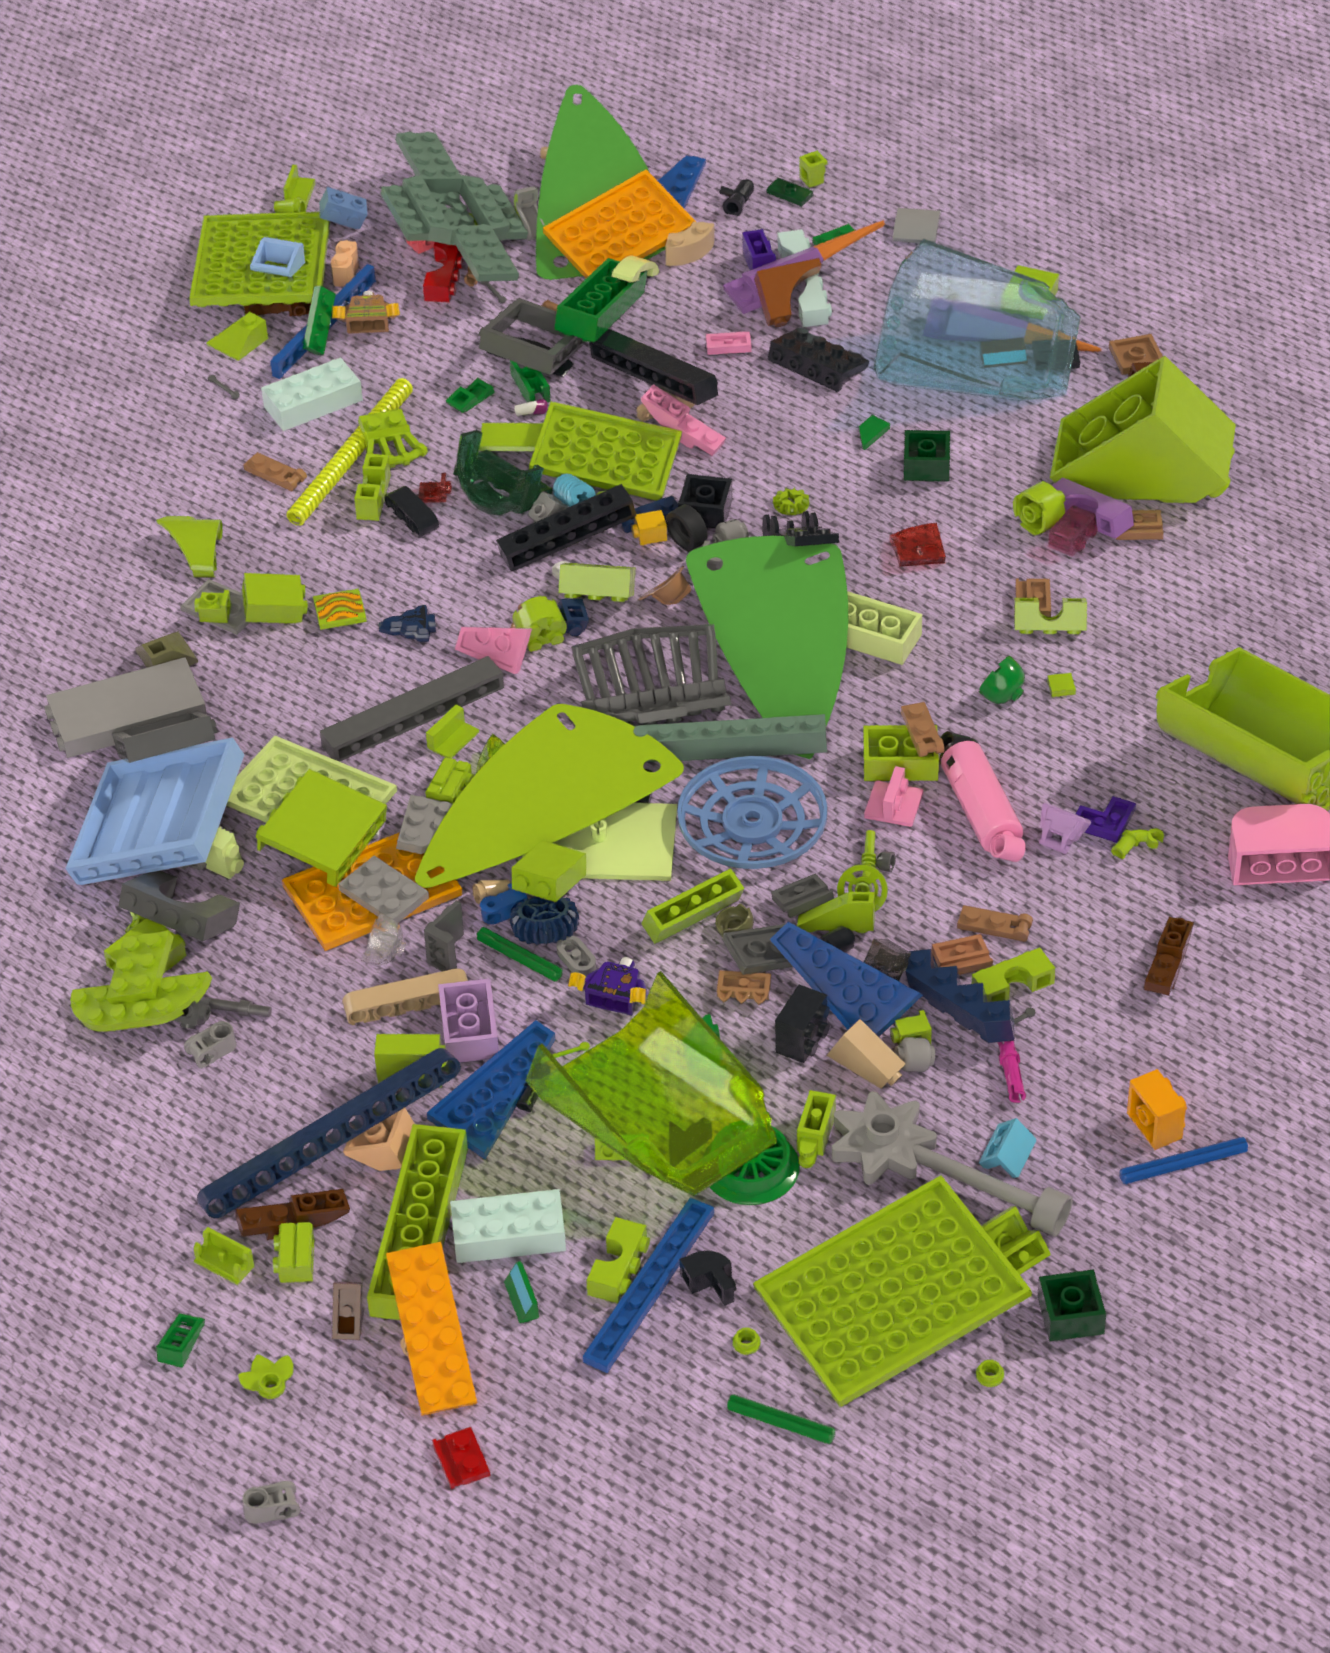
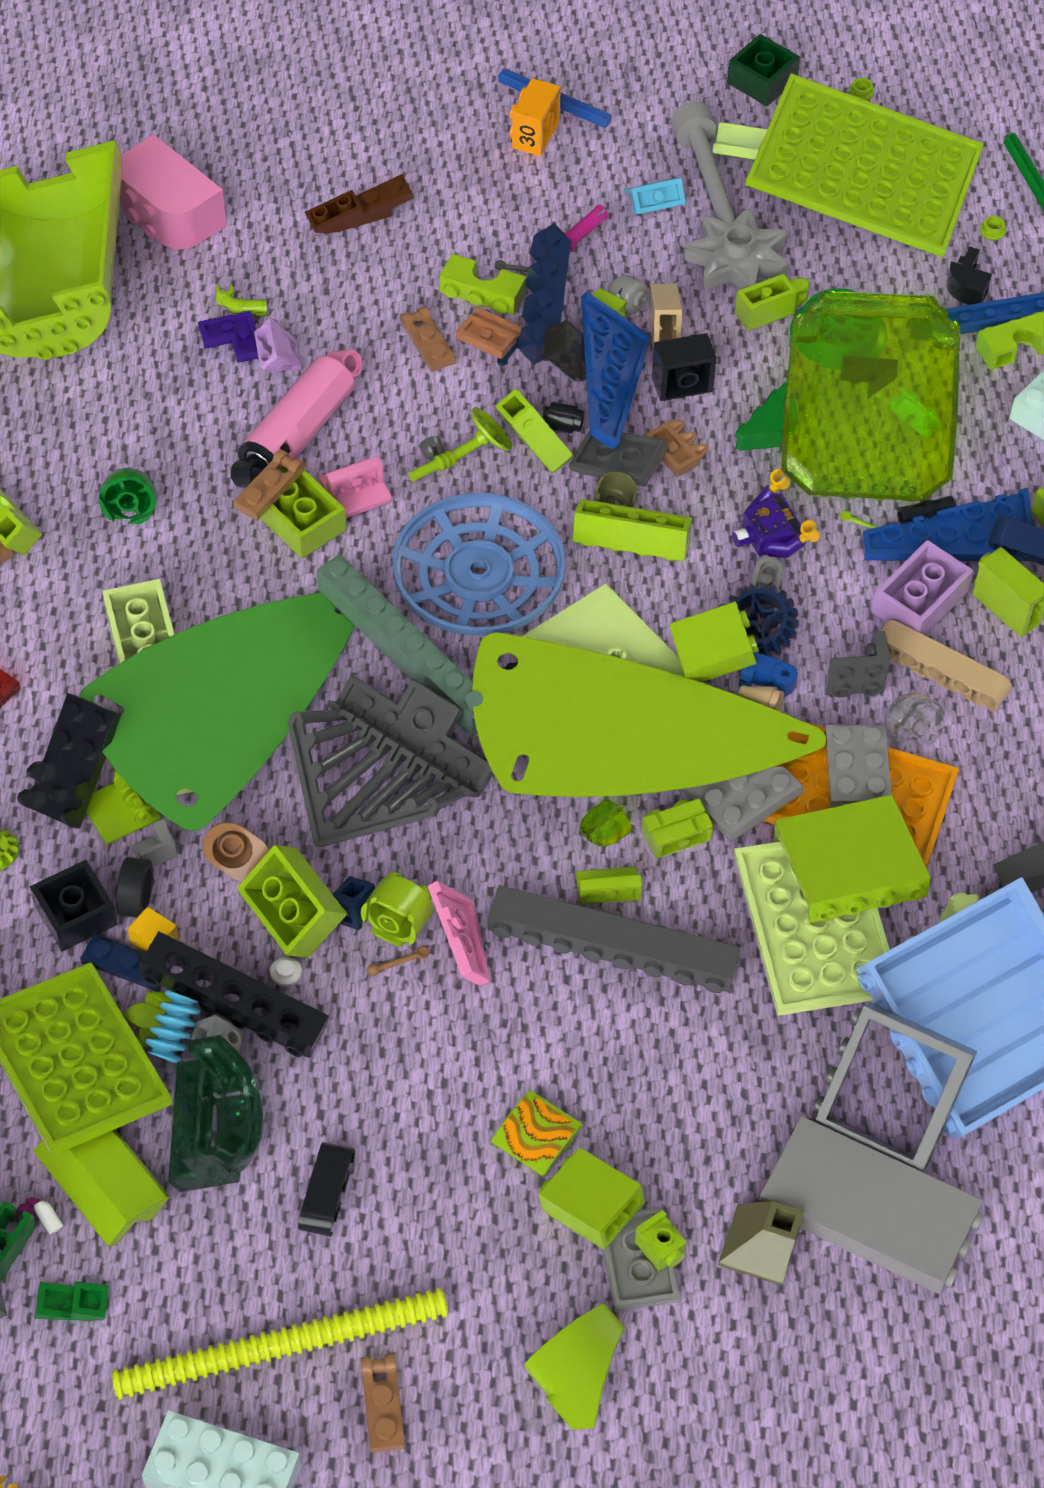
camera: 135 degrees left, 10 degrees up
(370, 494) = (311, 1264): lime arch -> none
(387, 427) = (228, 1324): lime plate -> none
(412, 624) = (496, 1042): dark blue rock -> none
(435, 490) = (268, 1198): clear red bracket -> none
(519, 954) = (805, 630): green axle -> none
(730, 530) = (102, 853): light grey head -> none
(802, 895) = (533, 474): dark grey plate -> none
(1061, 684) = (81, 467): lime tile -> none

